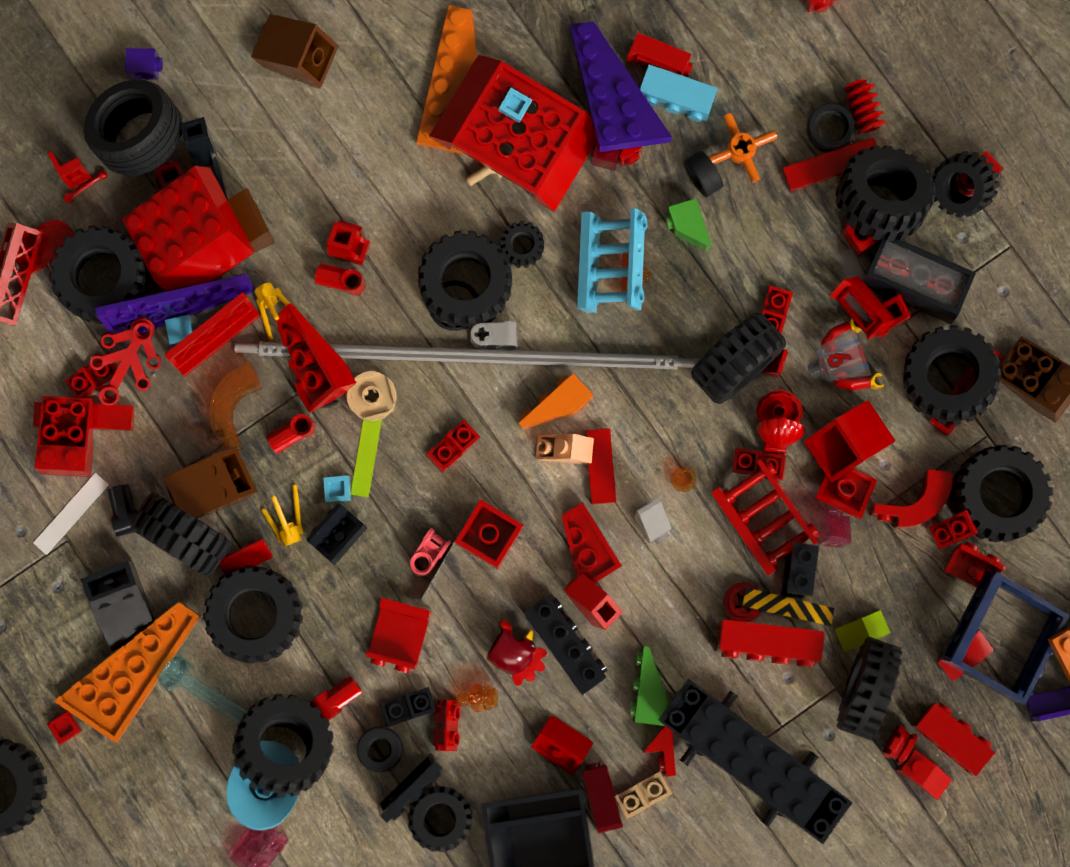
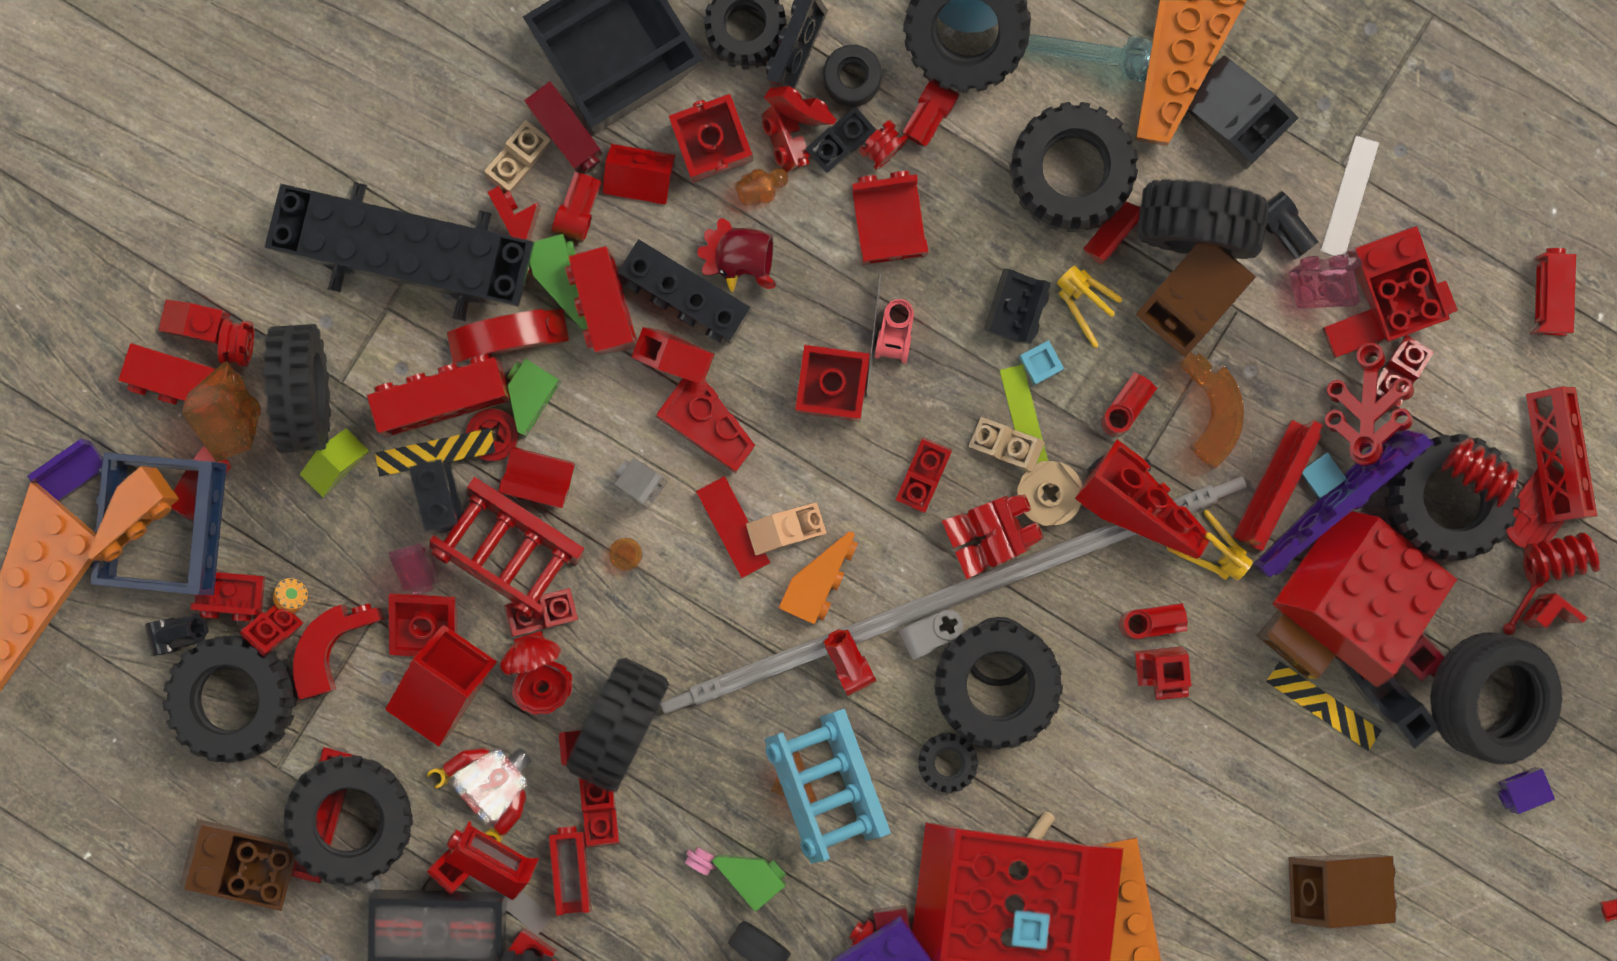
camera: 160 degrees right, 5 degrees up
(46, 206) = (1560, 555): none -> red piece
(69, 278) = (1482, 471): none -> red piece
(115, 458) = (1325, 282): none -> clear pink bracket
(251, 177) = (1323, 706): none -> sticker
(379, 689) = (883, 145): none -> red wheel
(386, 442) = (1006, 444): none -> tan slope
(417, 381) = (1002, 530): none -> red hips
(429, 741) = (806, 111): none -> red slope
(499, 746) = (711, 138): none -> red brick
(560, 337) = (850, 665): none -> red piece
(620, 733) = (575, 215): none -> red piece
(627, 659) = (601, 301): none -> red slope
(703, 666) = (507, 334): none -> red arch
(704, 620) = (529, 393): none -> bright green slope
(719, 249) = (700, 860): none -> bright pink plate
(723, 557) = (537, 477): none -> red panel
(811, 279) = (570, 871): none -> red window
(929, 695) = (223, 413): none -> clear orange slope
(930, 549) = (290, 595): none -> light orange tile
(1018, 654) = (133, 507): none -> orange slope
(1026, 556) = (172, 634): none -> black piece

